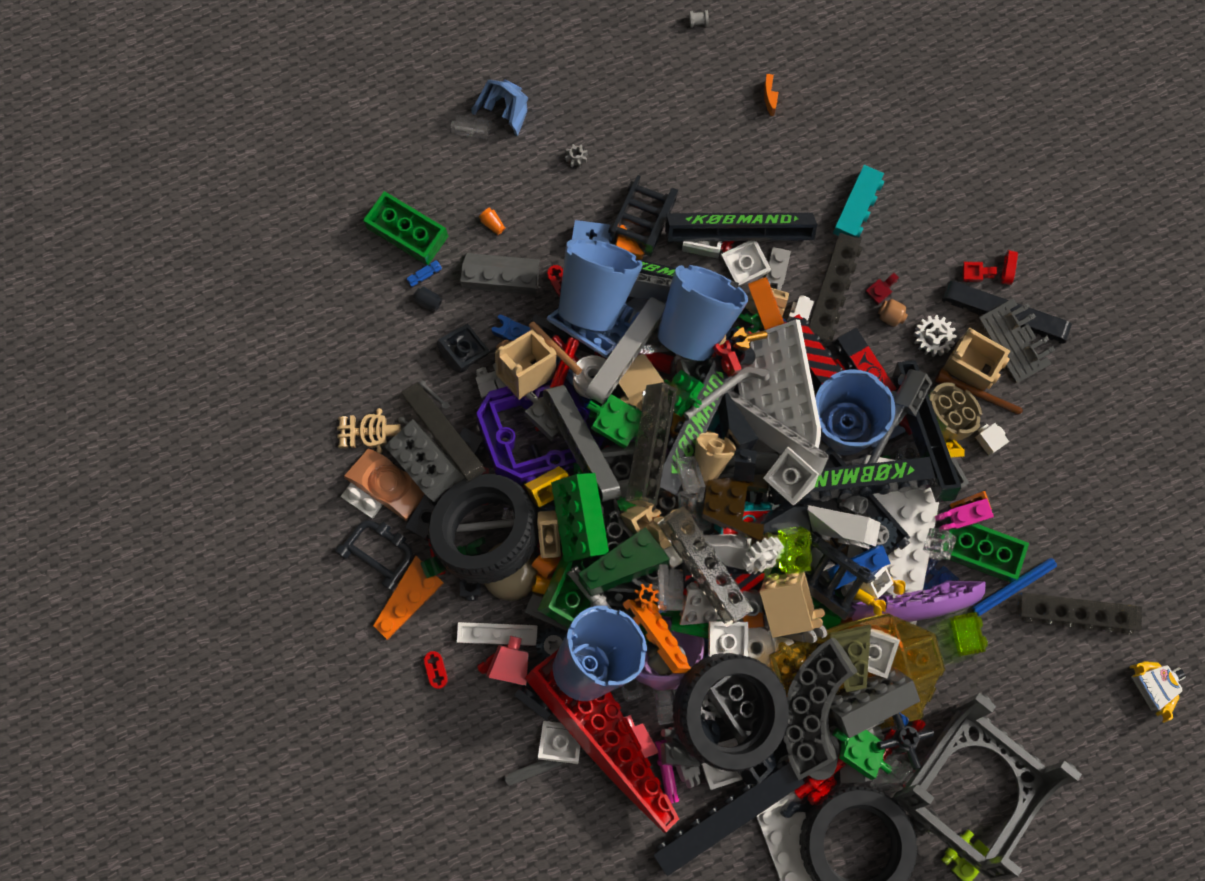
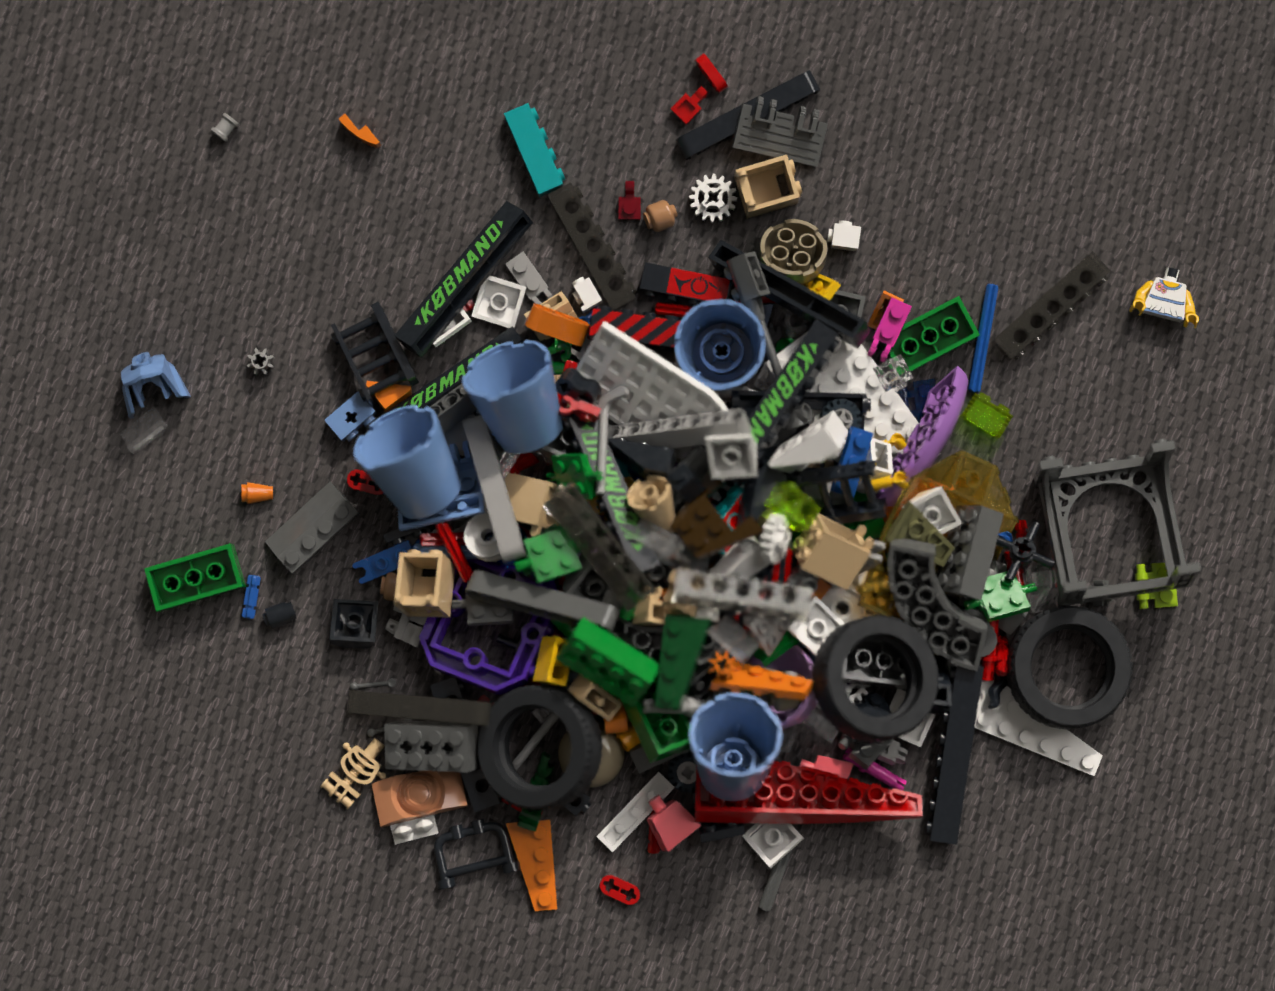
camera: 45 degrees left, 10 degrees up
(560, 353) = (426, 547): medium nougat bar -> none
(747, 338) = (579, 376): pearl gold bar -> none
(944, 377) = (756, 225): reddish brown piece -> none

